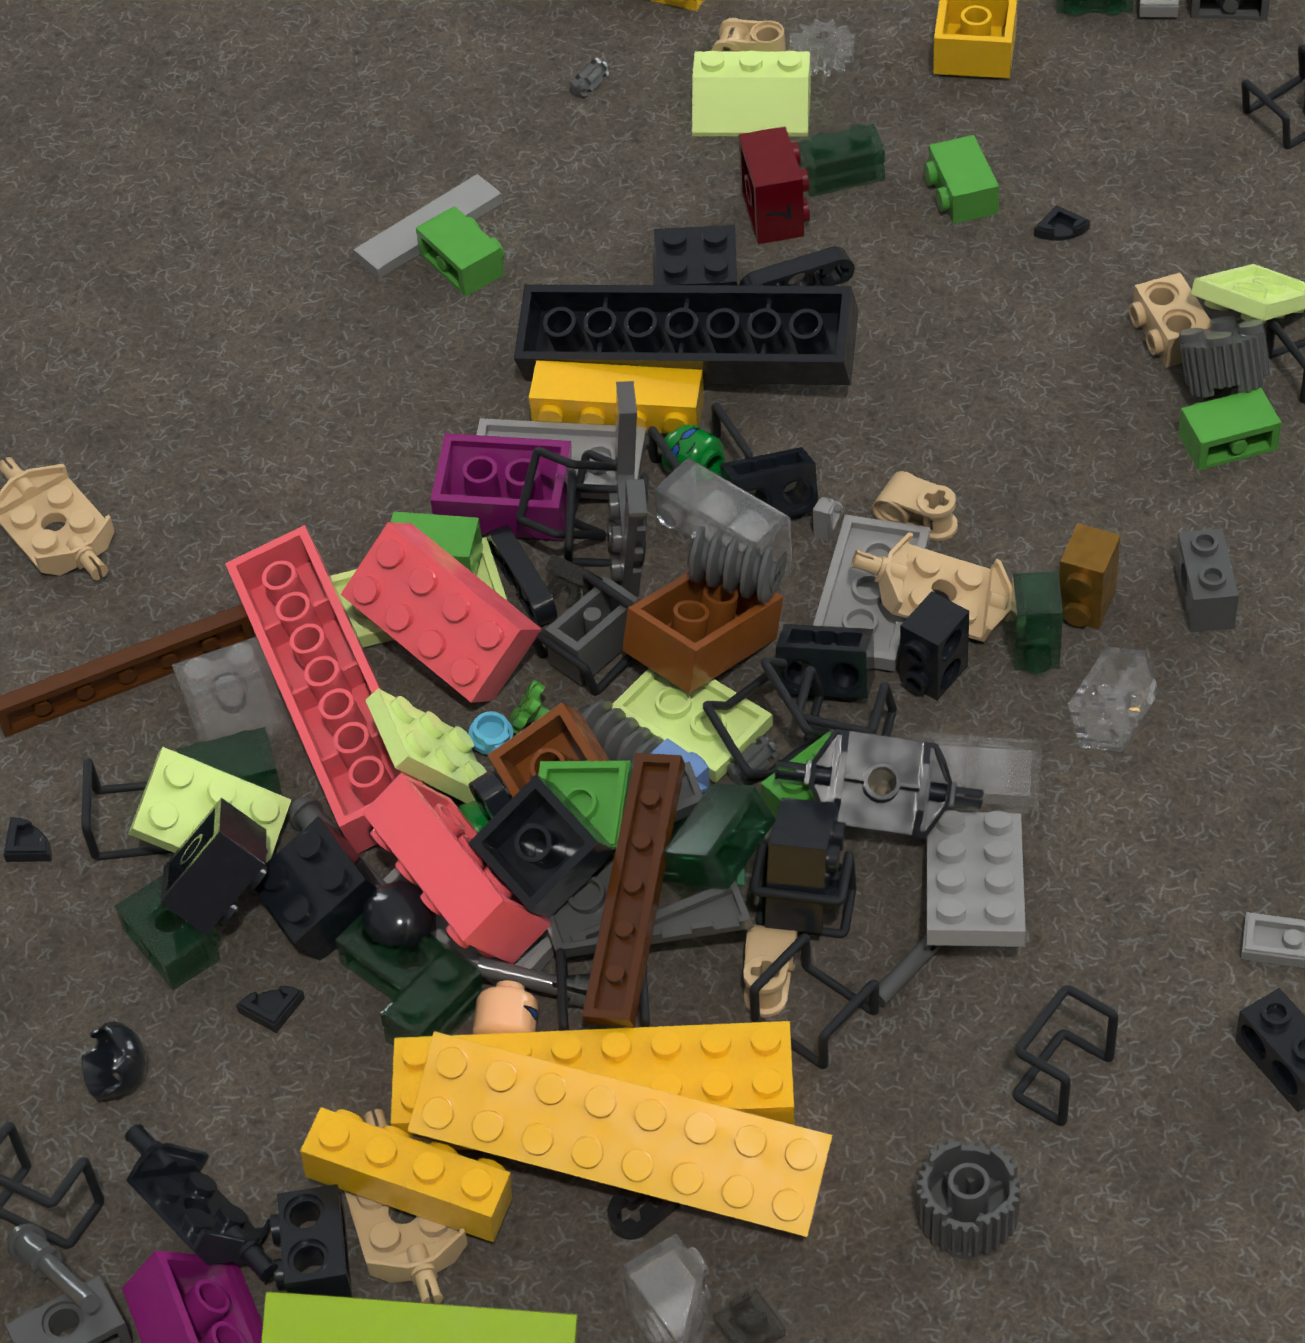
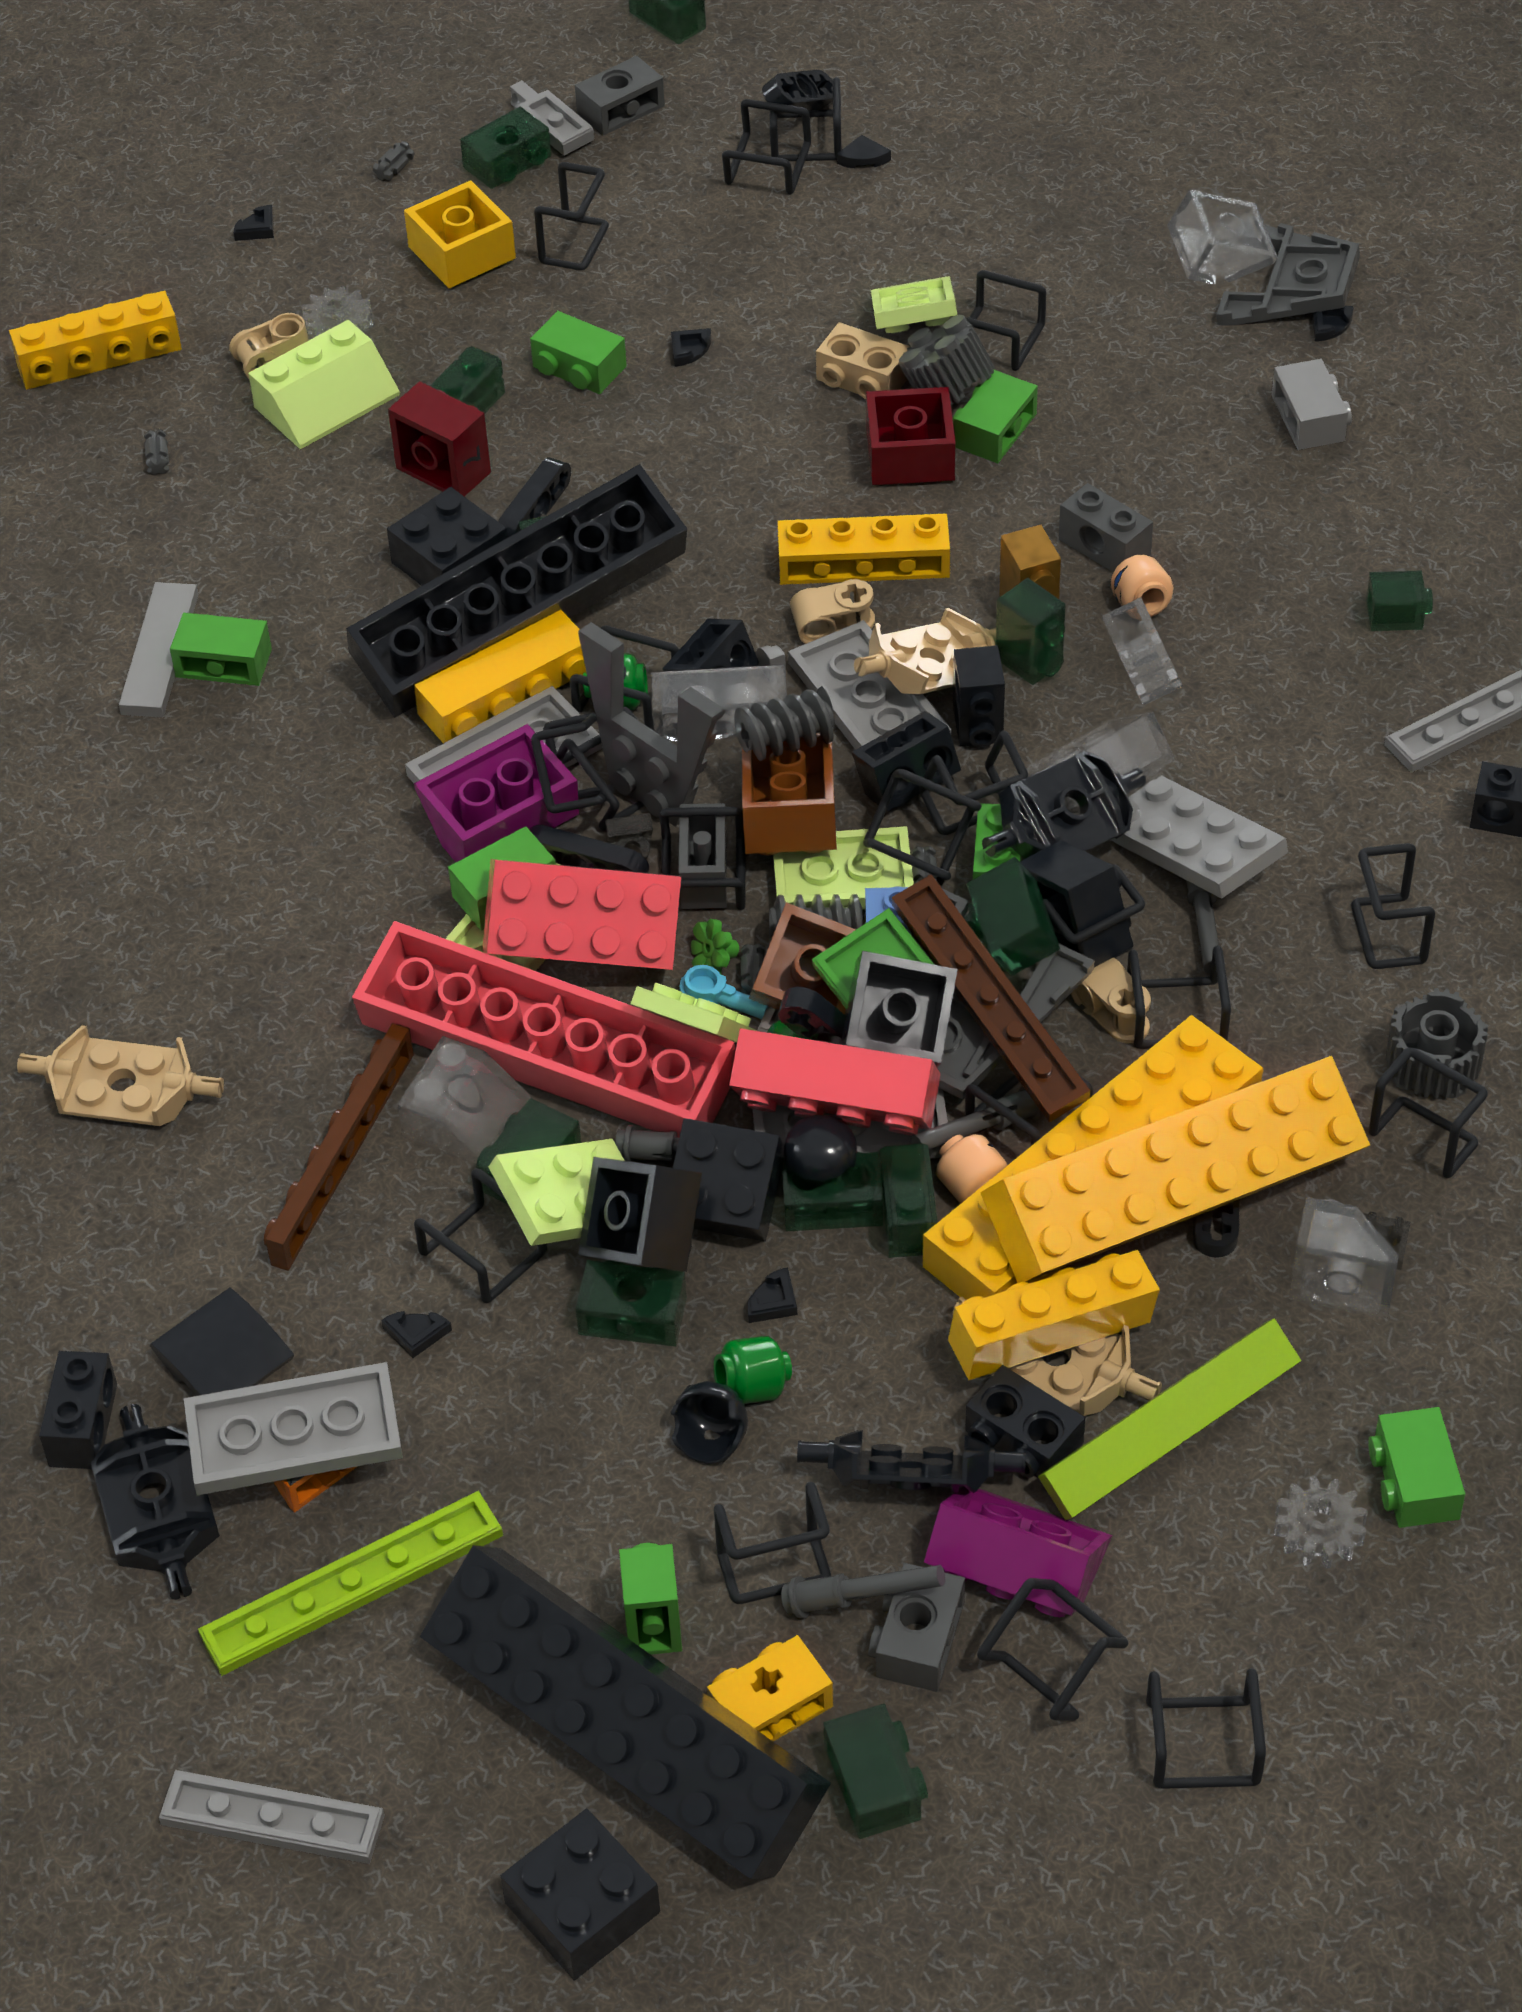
camera: 45 degrees left, 0 degrees up
(185, 1047) = (753, 1368): none -> green head
(915, 1242) = (1377, 1123): none -> black piece
(999, 471) = (863, 549): none -> yellow brick
(1089, 51) = (573, 216): none -> black piece
(1133, 400) = (910, 435): none -> dark red brick
(1184, 646) = (1142, 578): none -> light nougat head

